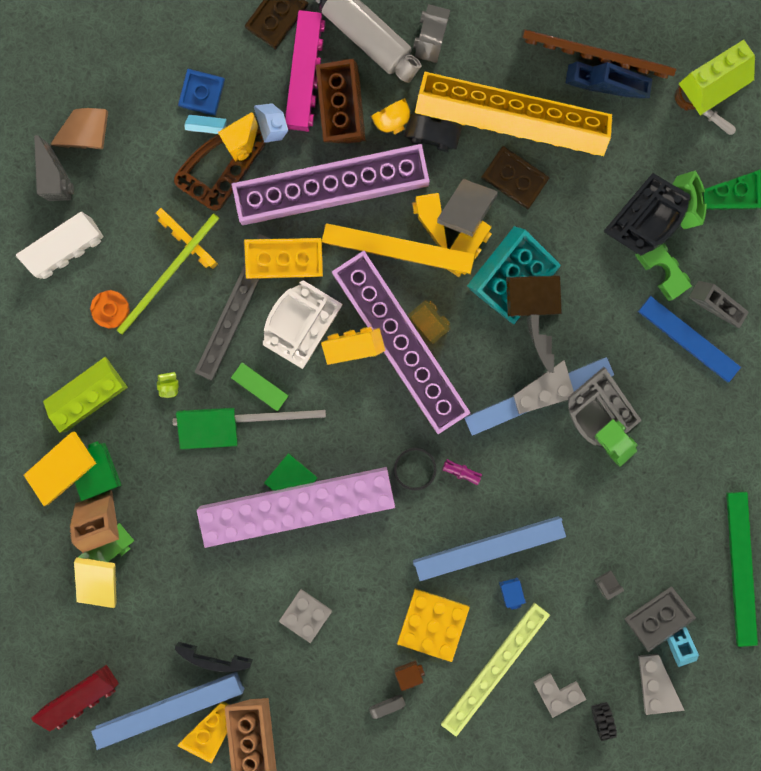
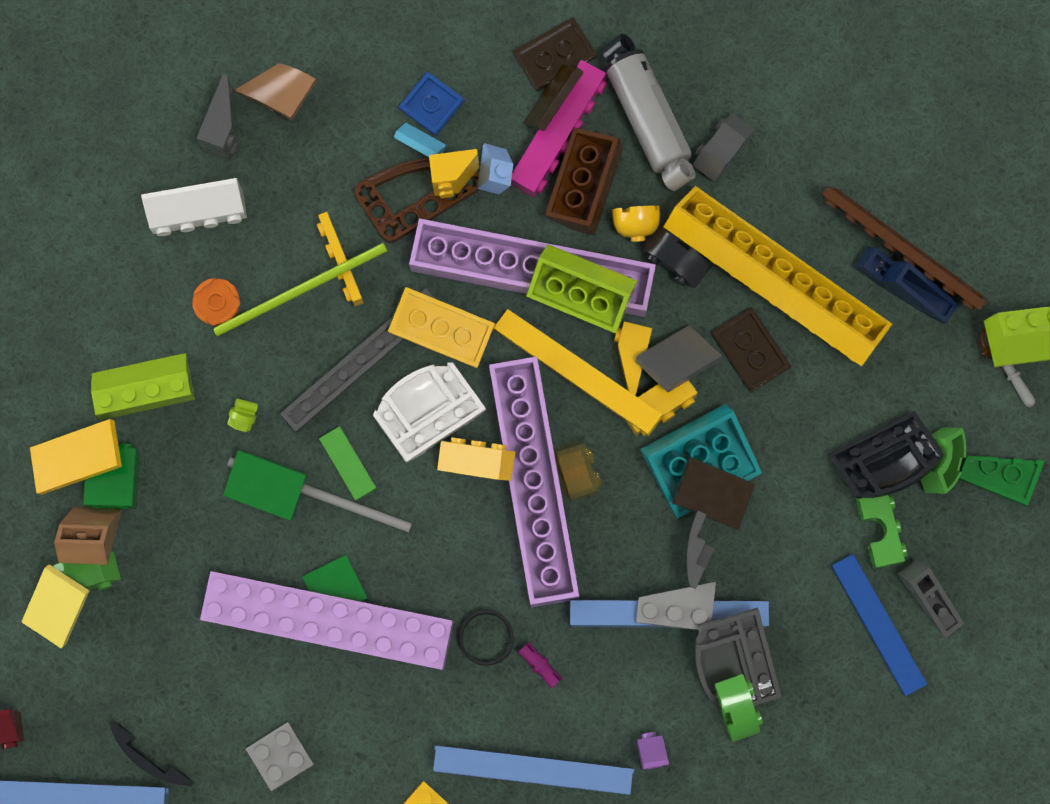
camera: 25 degrees right, 10 degrees down
(290, 48) = (553, 97): none -> dark brown tile
(375, 185) = (581, 288): none -> lime slope
(569, 500) = (652, 751): none -> medium lavender slope

